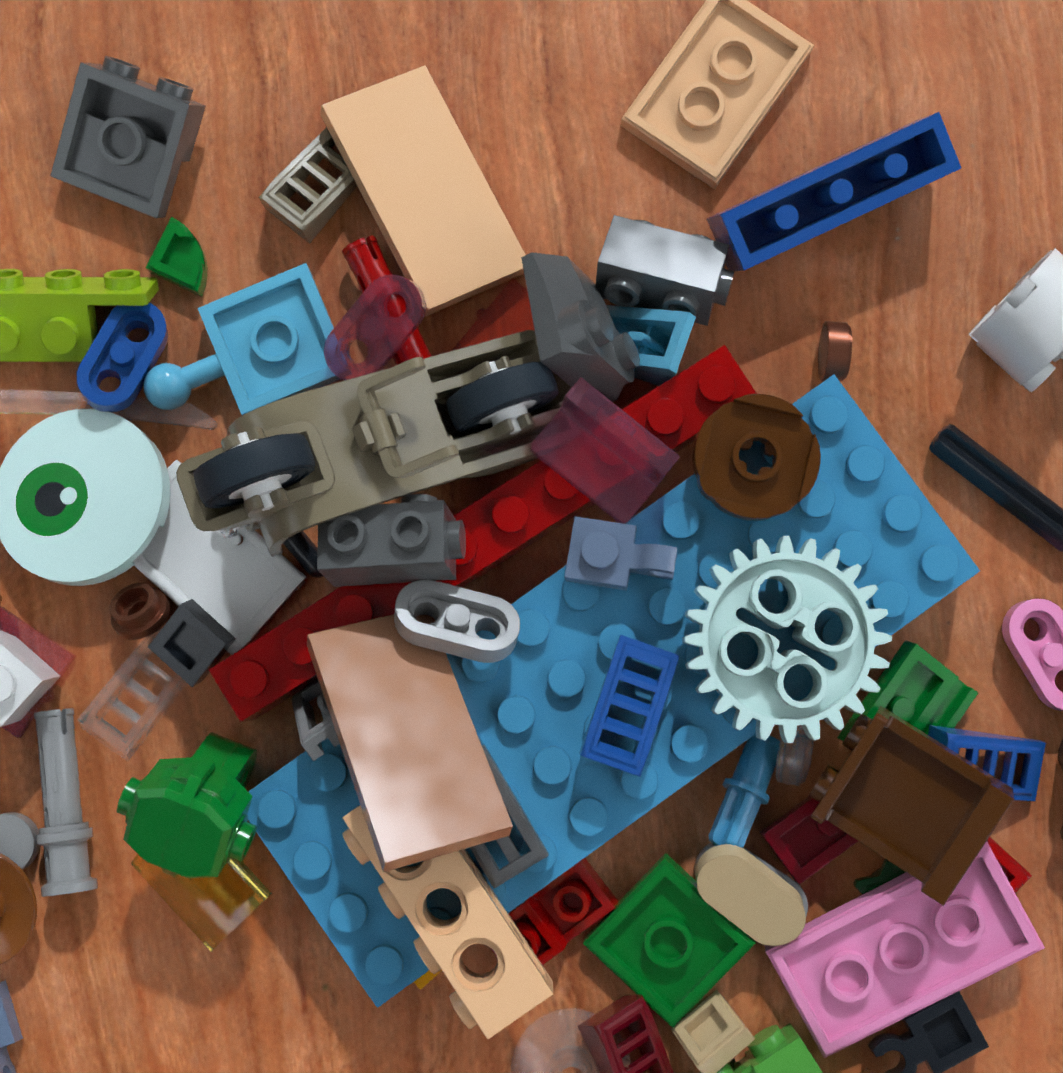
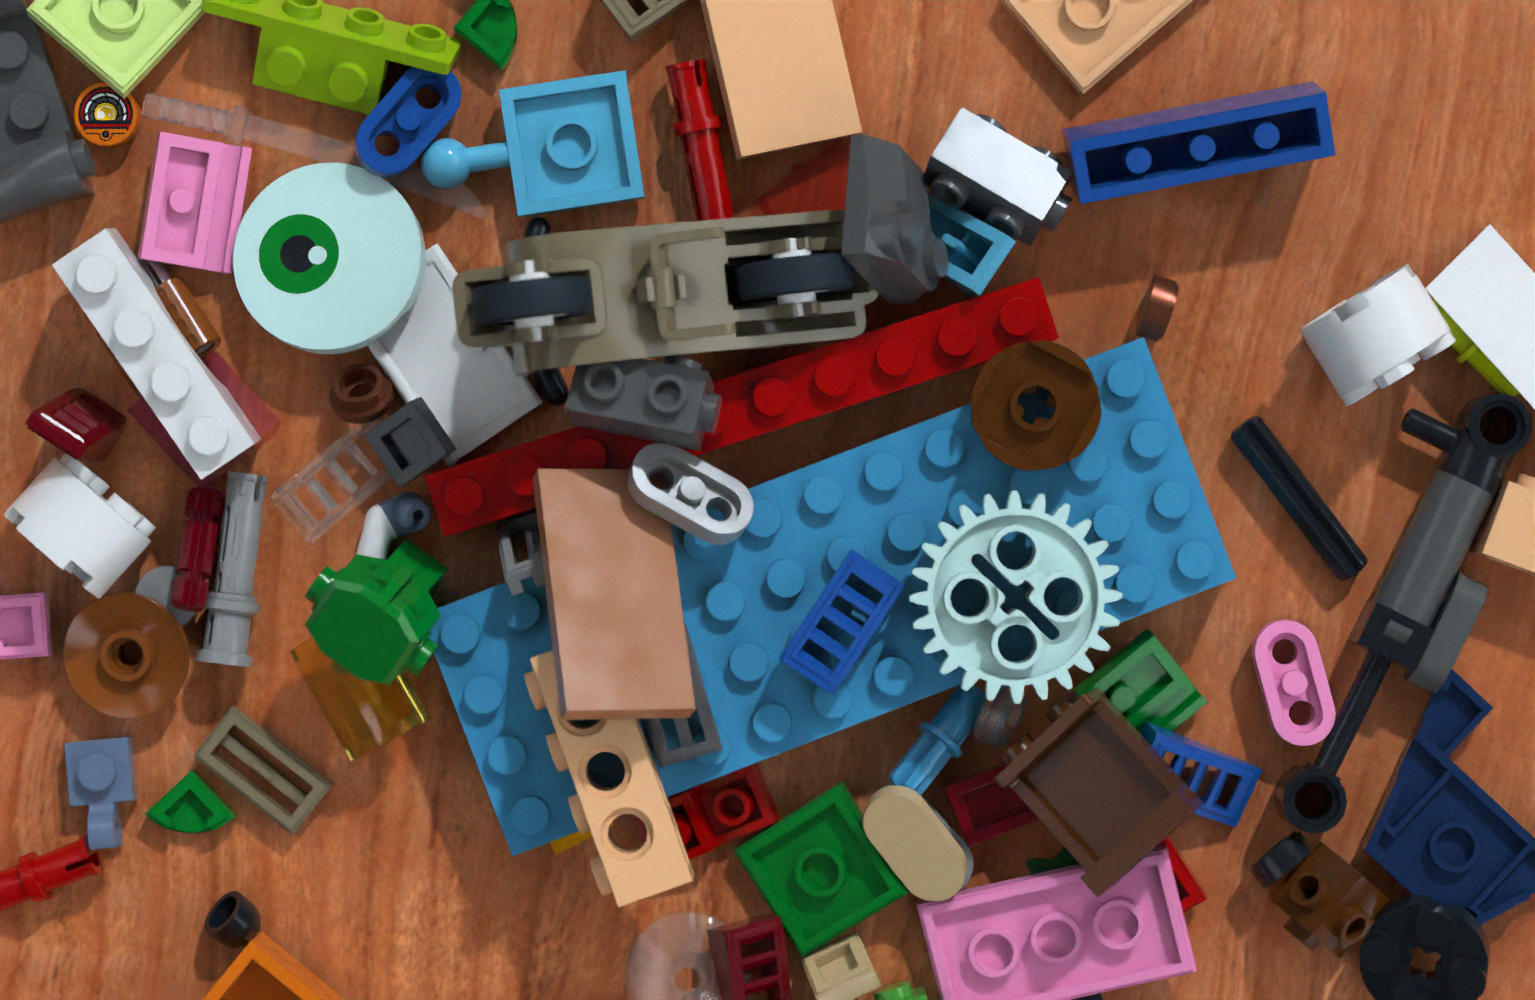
camera: 10 degrees right, 5 degrees up
(20, 792) = (196, 549): none -> dark red axle
(73, 1033) = (191, 807): none -> green tile
(143, 959) = (278, 749): none -> dark tan tile
(194, 720) = (391, 521): none -> arm
(372, 324) = (682, 163): clear pink plate -> none
(603, 452) = (881, 361): clear pink panel -> none
(607, 553) = (859, 464): sand blue plate -> none

